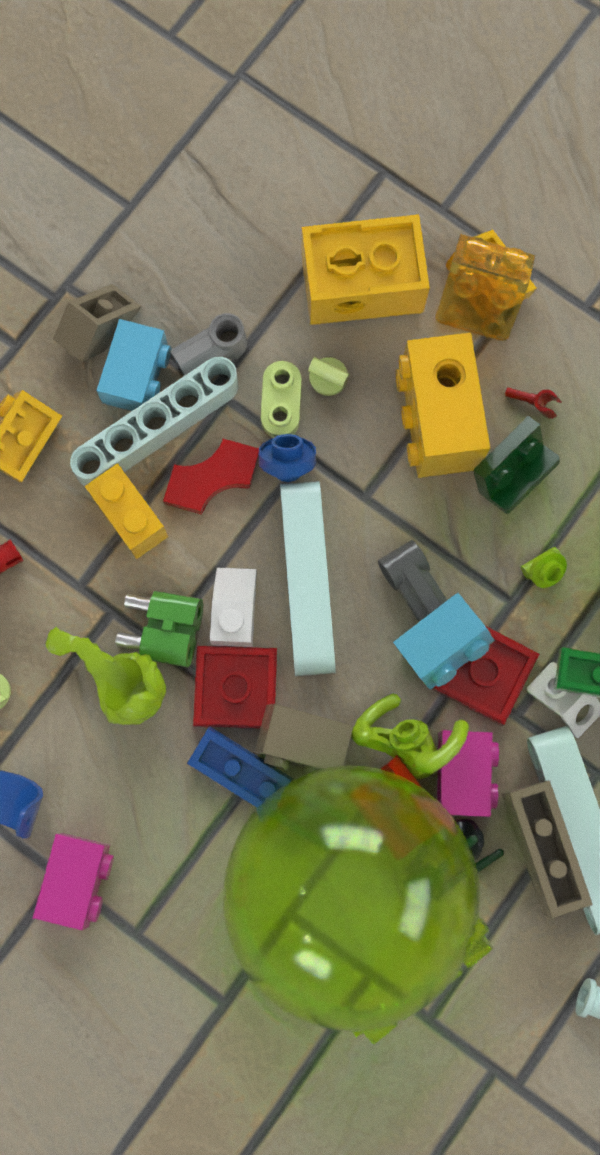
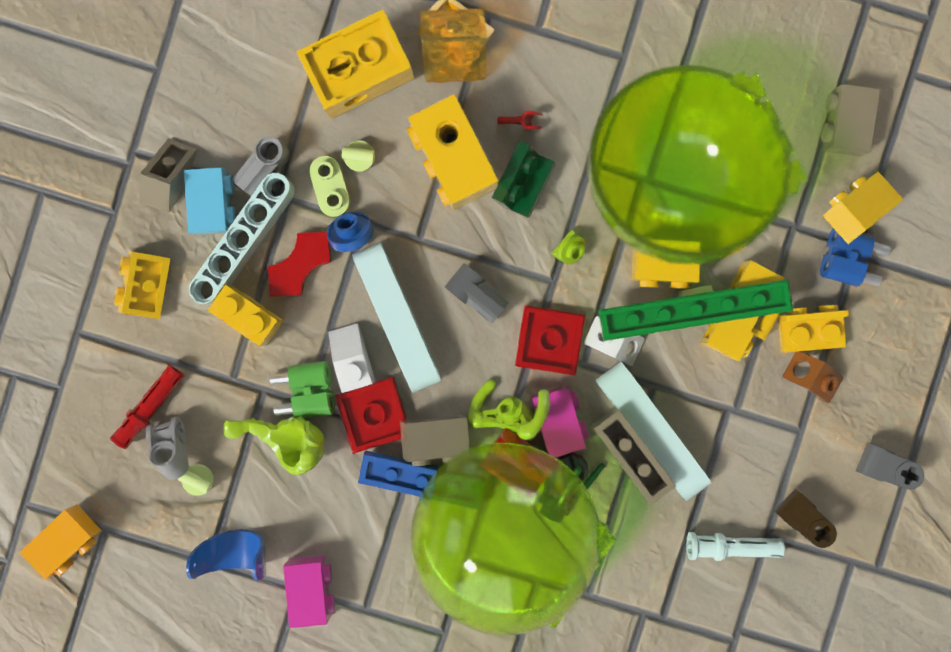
camera: 20 degrees left, 10 degrees up
(444, 642) = (512, 333): medium azure brick -> none

